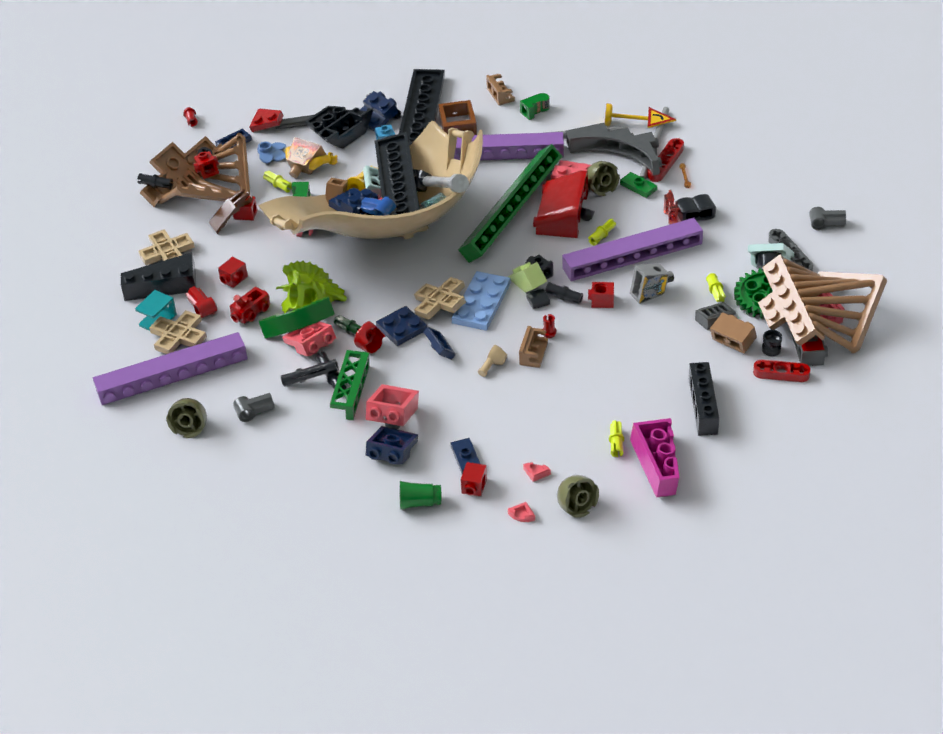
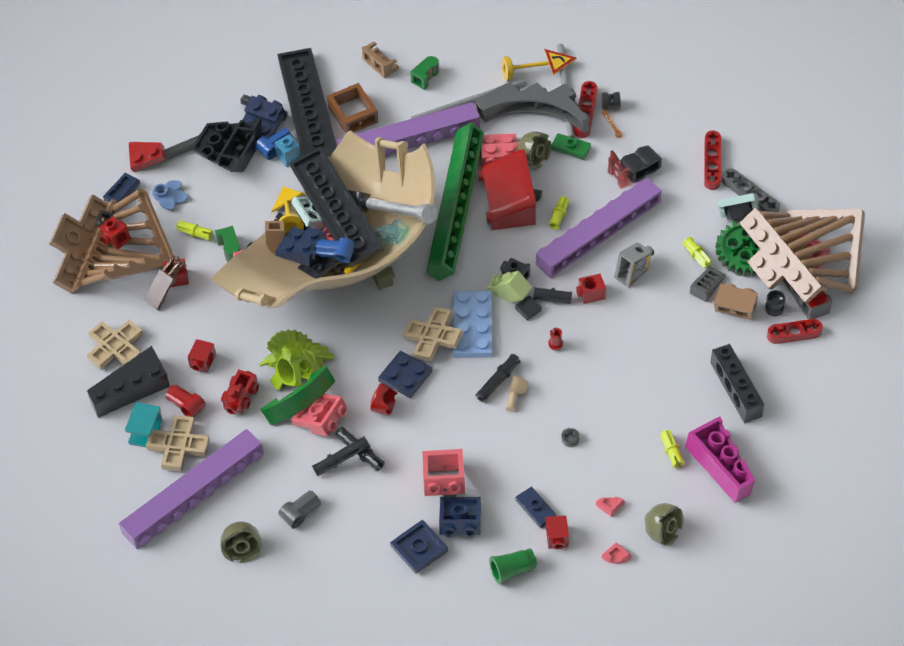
camera: 20 degrees left, 10 degrees up
(155, 181) = (67, 266): black pin -> none
(189, 113) = (55, 166): red pin -> none
(306, 157) = (213, 194): torso -> none
(342, 461) = (419, 546): none -> dark blue plate
(348, 325) = (354, 389): dark green axle -> none
(356, 385) = (395, 469): green fence -> none
(369, 134) = (267, 145): none -> blue piece
(419, 245) = (384, 278): none -> olive plate
(439, 343) = (454, 386): dark blue plate -> none
(481, 346) = (503, 372): none -> black pin
(522, 405) = (565, 434): none -> dark grey bush
(533, 347) = (549, 367): medium nougat hinge -> none
(691, 156) = (610, 100): none -> black wheel
(762, 219) = (712, 160): none -> red beam
(821, 218) = (766, 145): dark grey piece -> none

